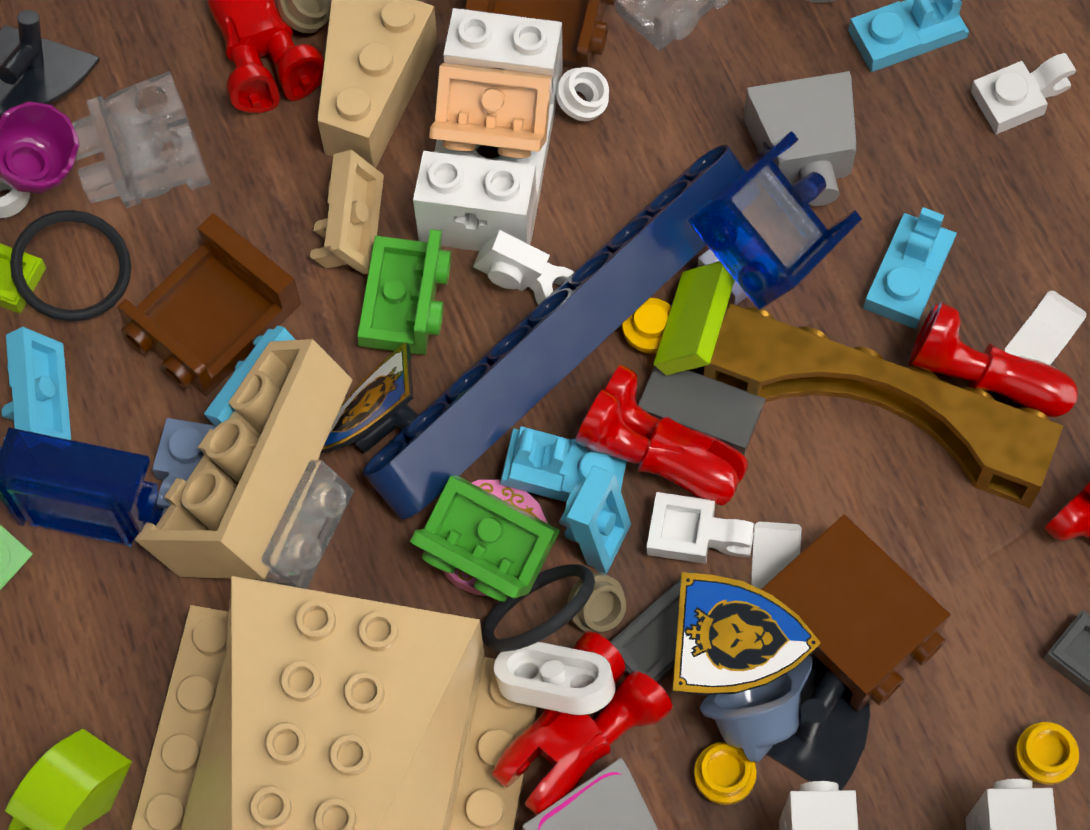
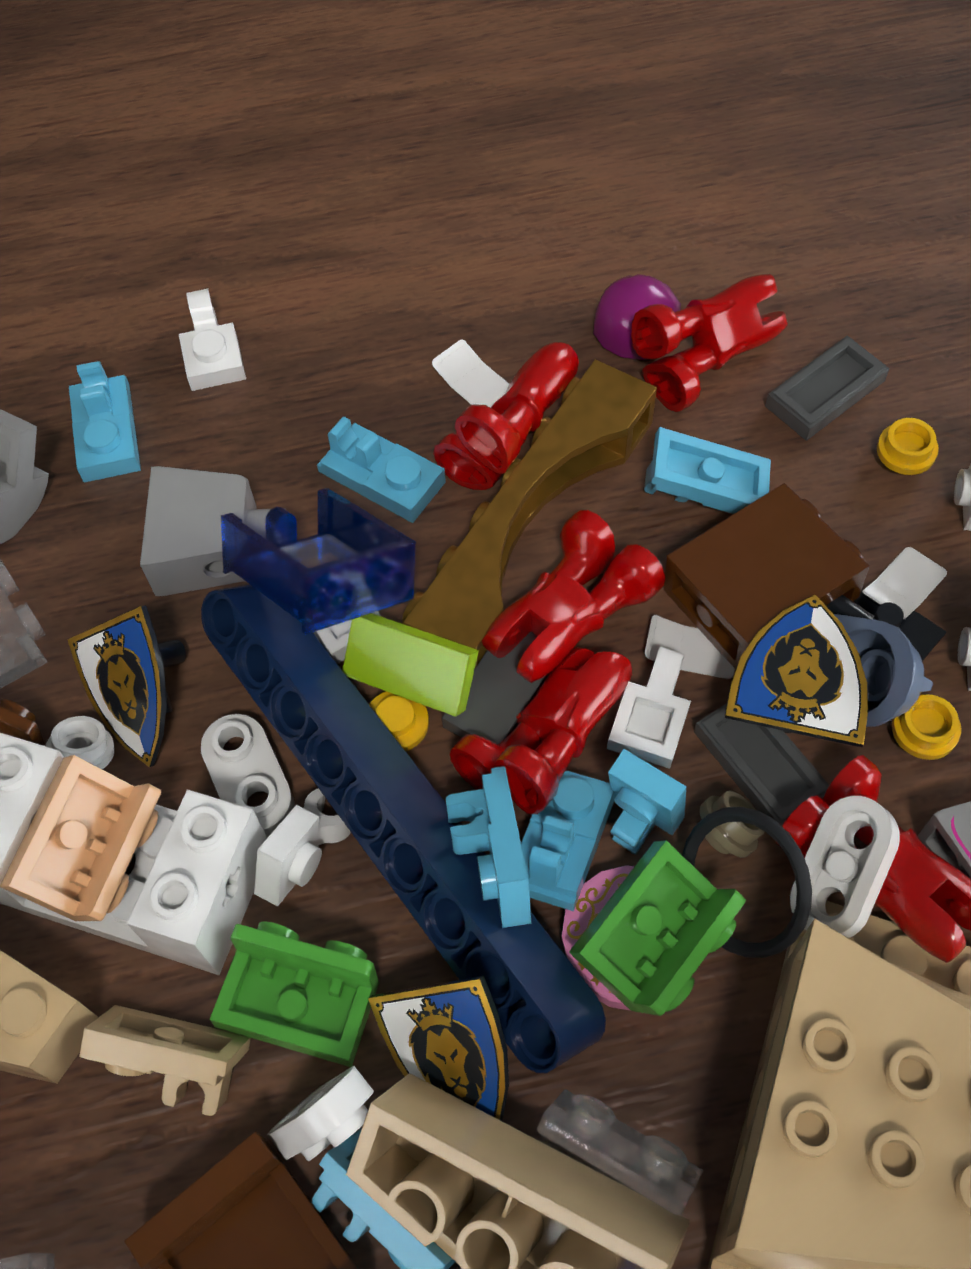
camera: 80 degrees left, 5 degrees down
(310, 322) = (324, 1117): none -> white plate
(535, 406) = (493, 830): none -> medium azure plate
(586, 221) = (247, 768): none -> white plate
(647, 115) = (126, 679): none -> shield
(772, 433) = (559, 605): none -> red piece
(884, 757) = (906, 581): none -> white sticker
(960, 551) = (706, 472): none -> medium azure plate

